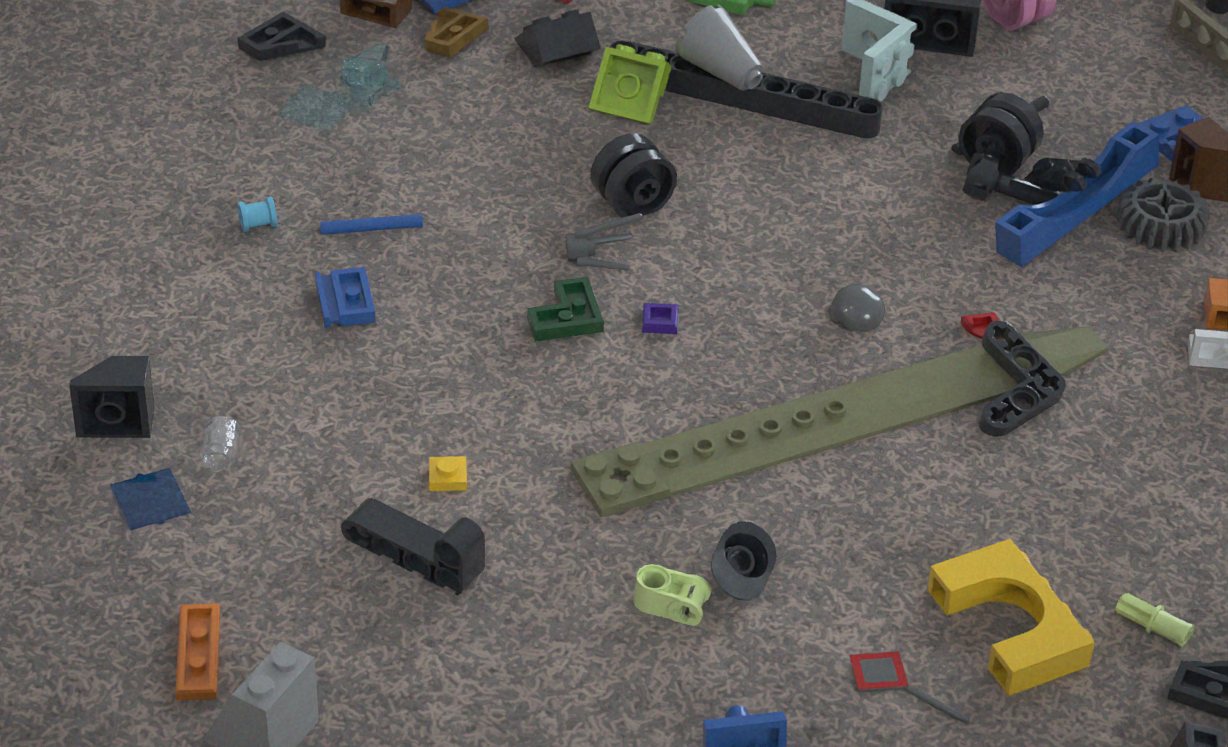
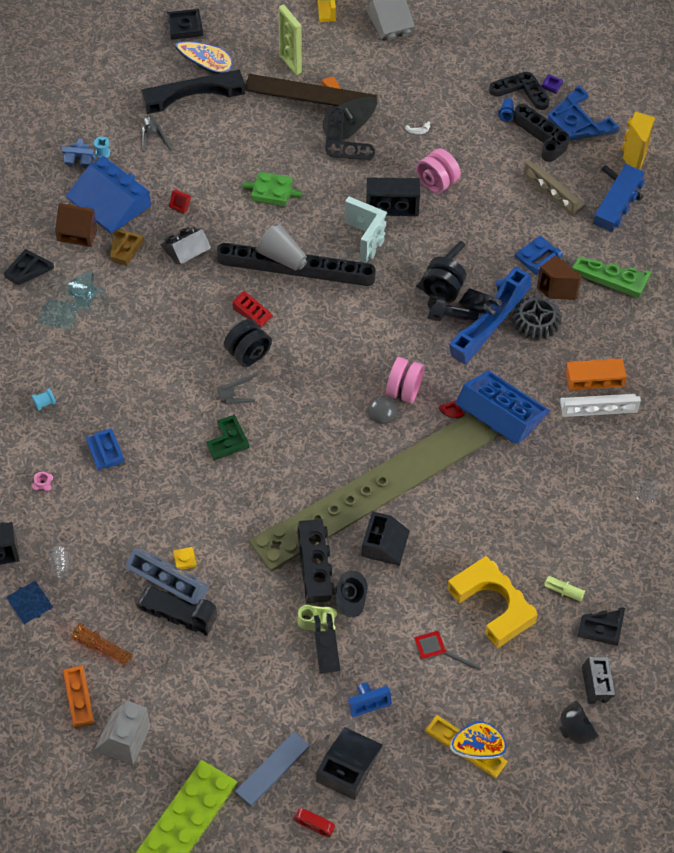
camera: 10 degrees left, 15 degrees up
(222, 326) = (42, 476): none -> bright pink plate
(249, 567) = (93, 640): none -> clear orange pin
(371, 224) = (107, 394): blue bar -> none
(404, 483) = (167, 576): none -> sand blue brick
(630, 84) = (232, 273): lime plate -> none
(645, 124) = (243, 301): none -> red slope
(660, 318) = (278, 433): dark purple tile -> none
(679, 637) = (326, 646): none -> black hinge
(685, 502) = (314, 591): none -> black brick
(822, 490) = (384, 539): none -> black slope
(905, 263) = (405, 380): none -> bright pink wheel
(1028, 380) = (482, 449): black beam -> none
(1075, 328) = (501, 406): none -> blue slope

